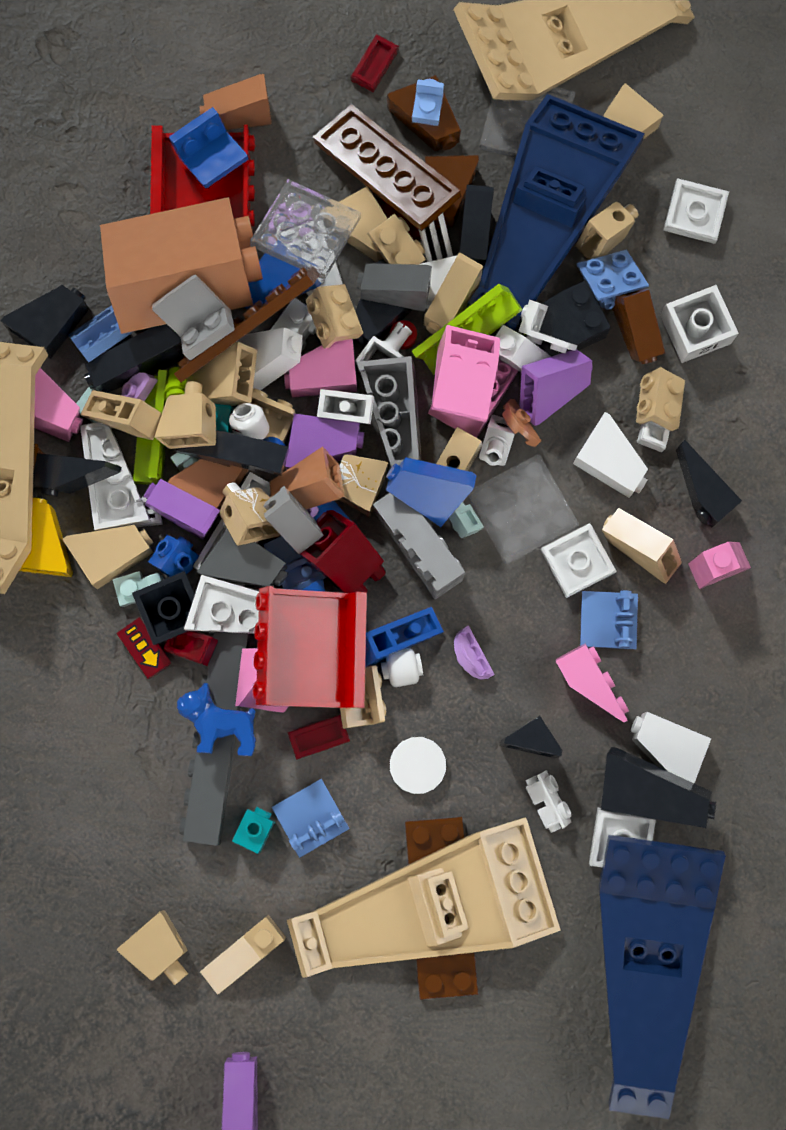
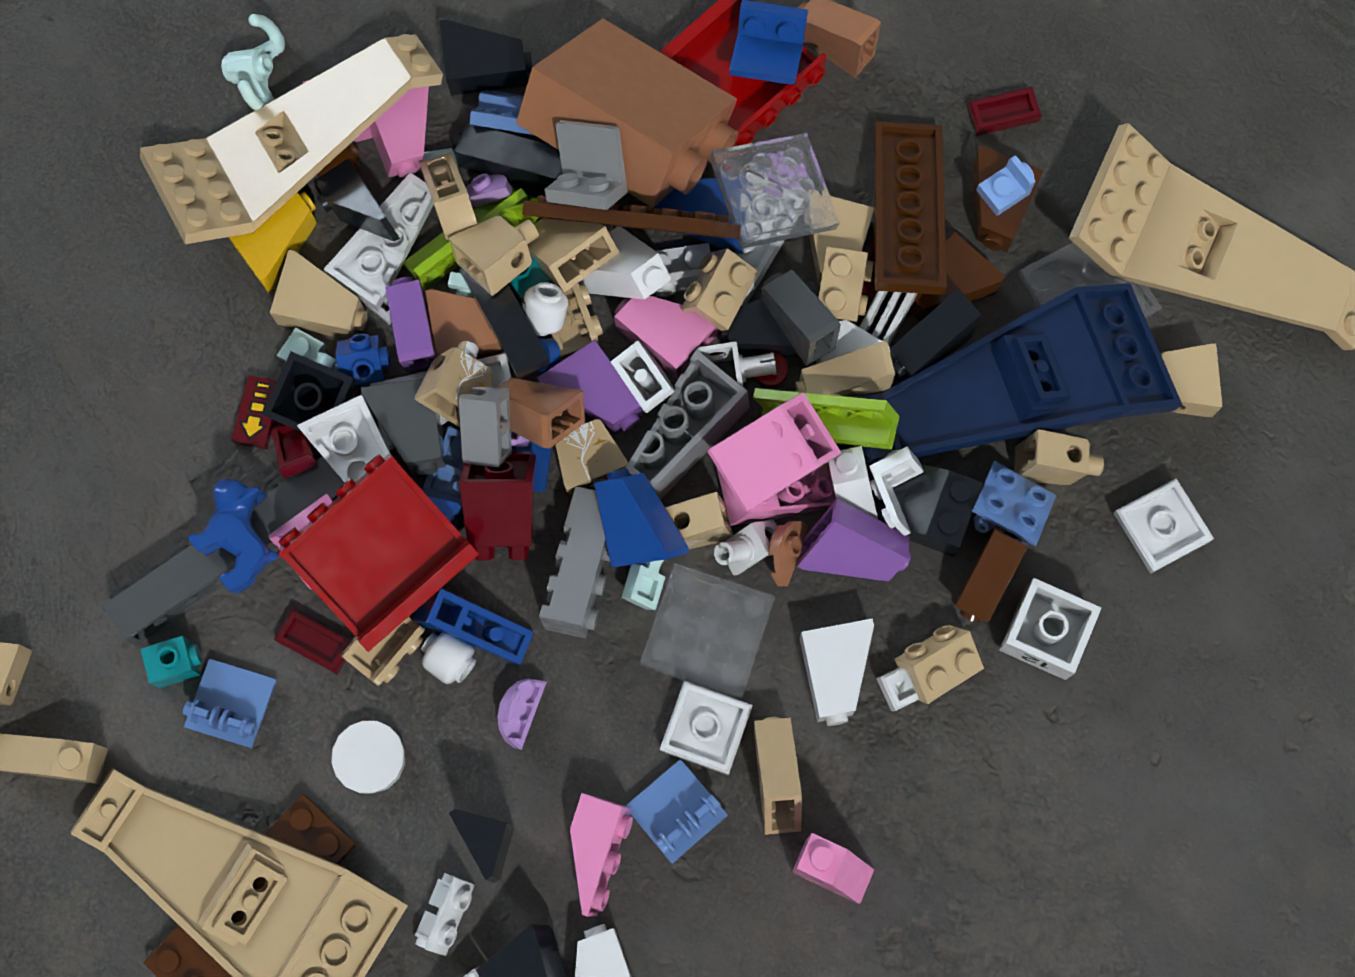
camera: 50 degrees right, 5 degrees down
(706, 489) = (892, 794): black slope -> none

